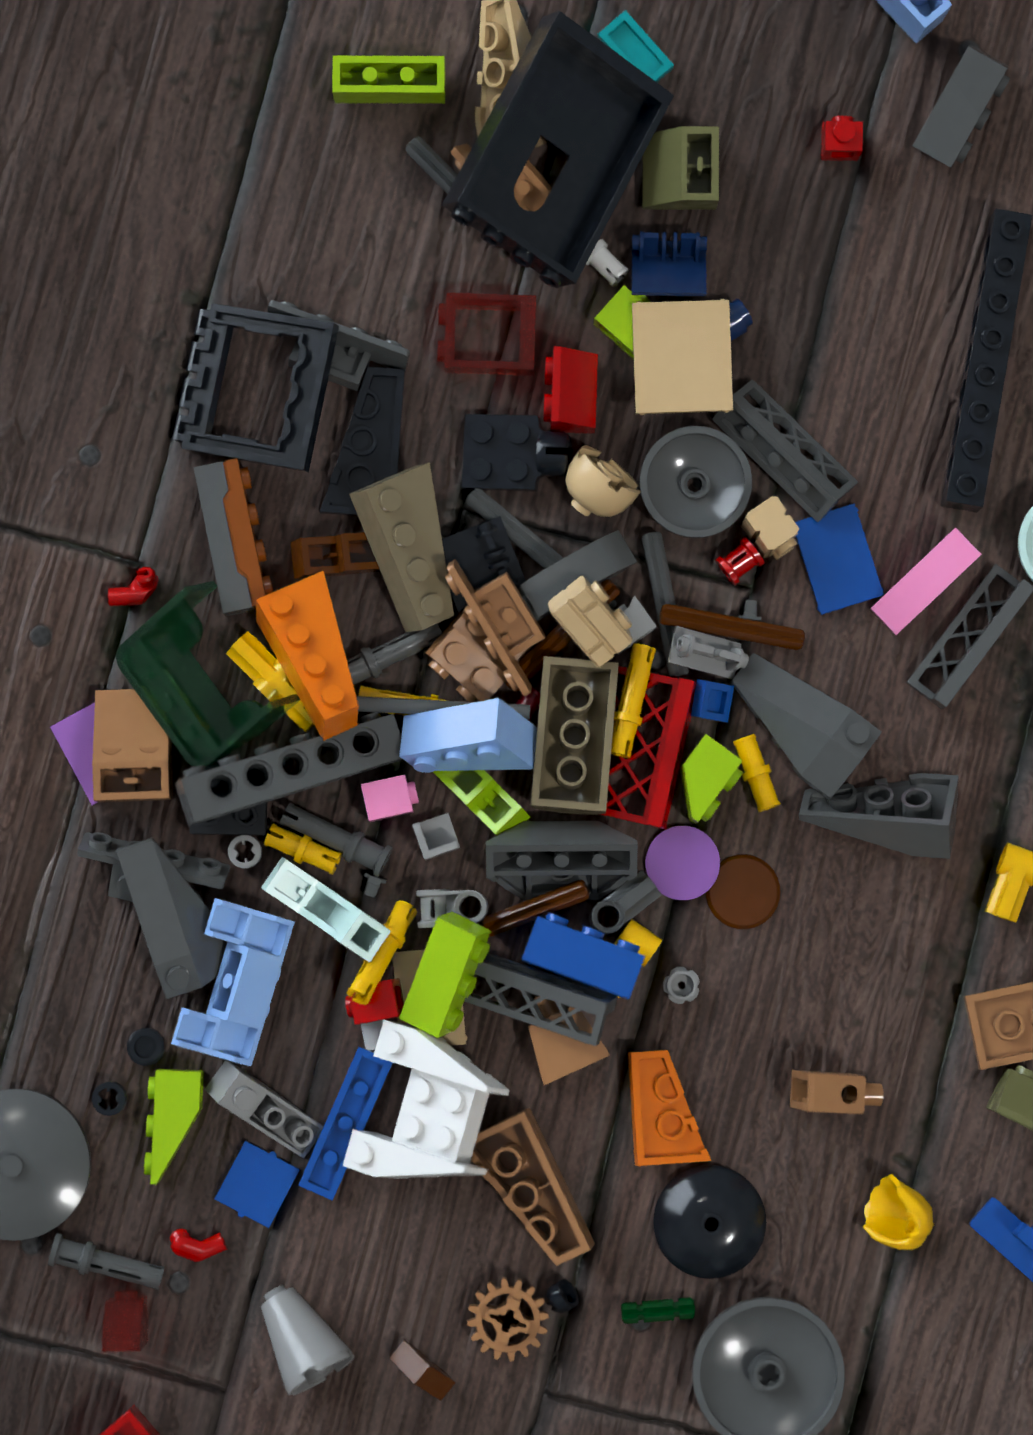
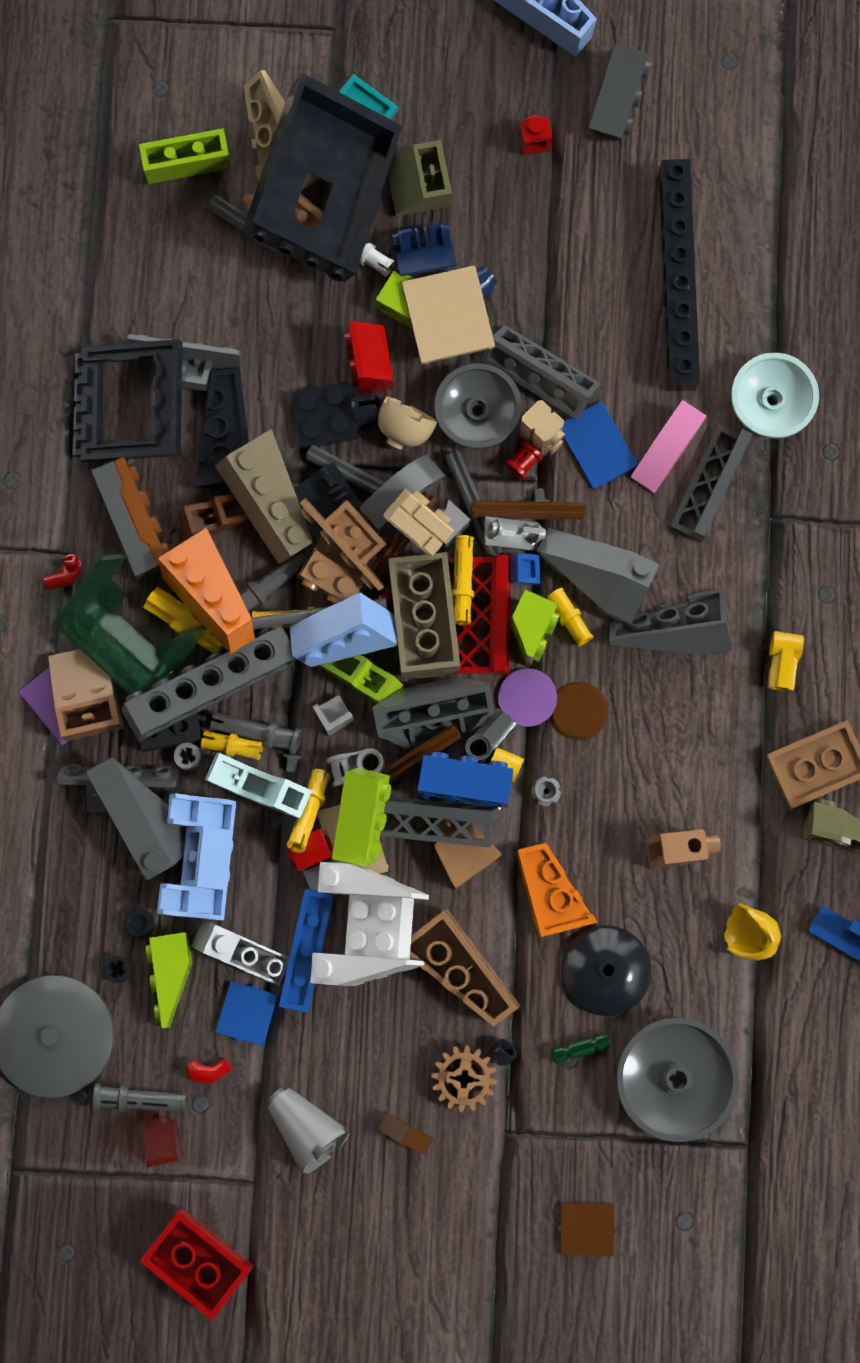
camera: 10 degrees left, 5 degrees down
(389, 797) = (291, 692): bright pink brick -> none
(447, 318) = (294, 305): clear red window -> none

